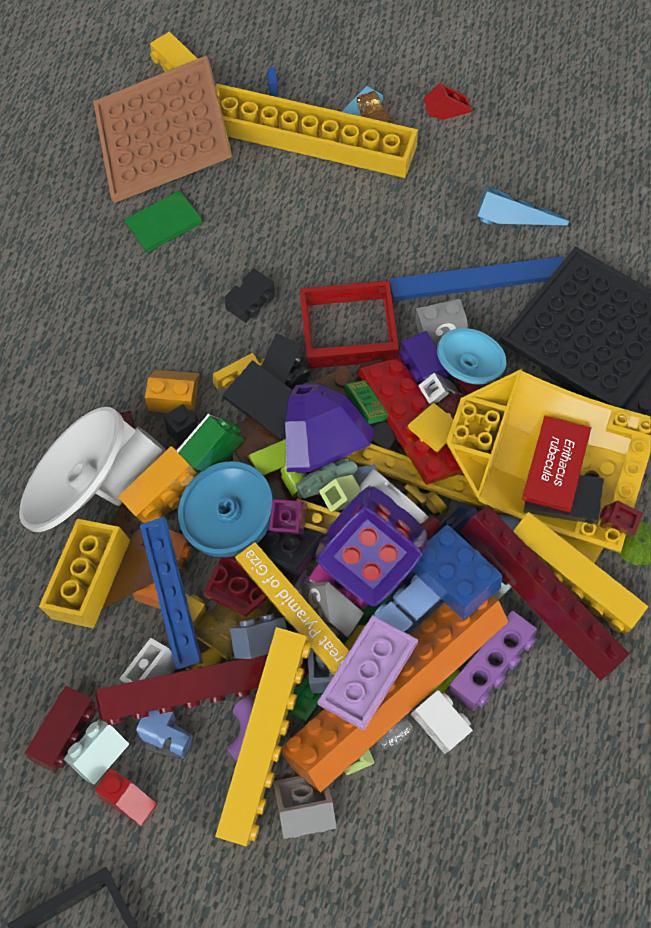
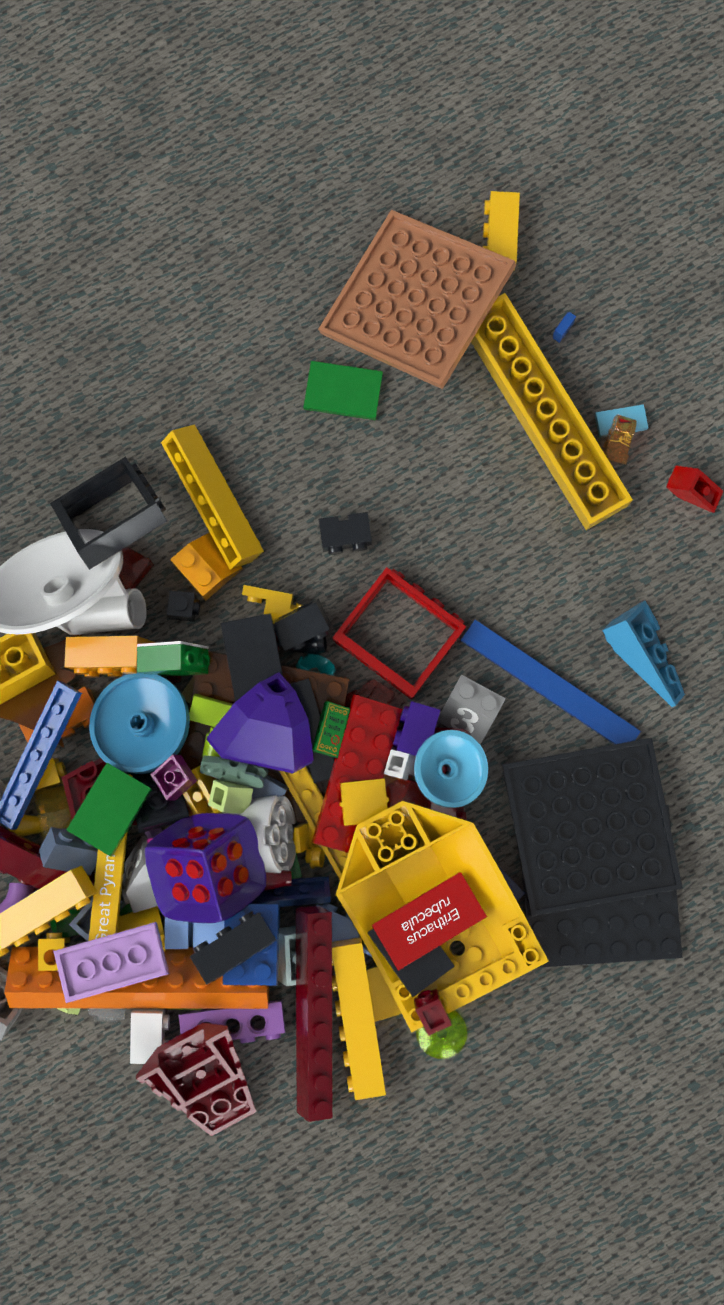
camera: 40 degrees right, 20 degrees up
(41, 429) = (96, 490): none -> black window
(135, 343) = (212, 496): none -> yellow brick
(262, 574) = (109, 809): none -> green tile
(308, 711) = (52, 941): none -> yellow bracket
(447, 569) = (232, 947): none -> black brick
(512, 708) = (201, 1077): none -> dark red wedge

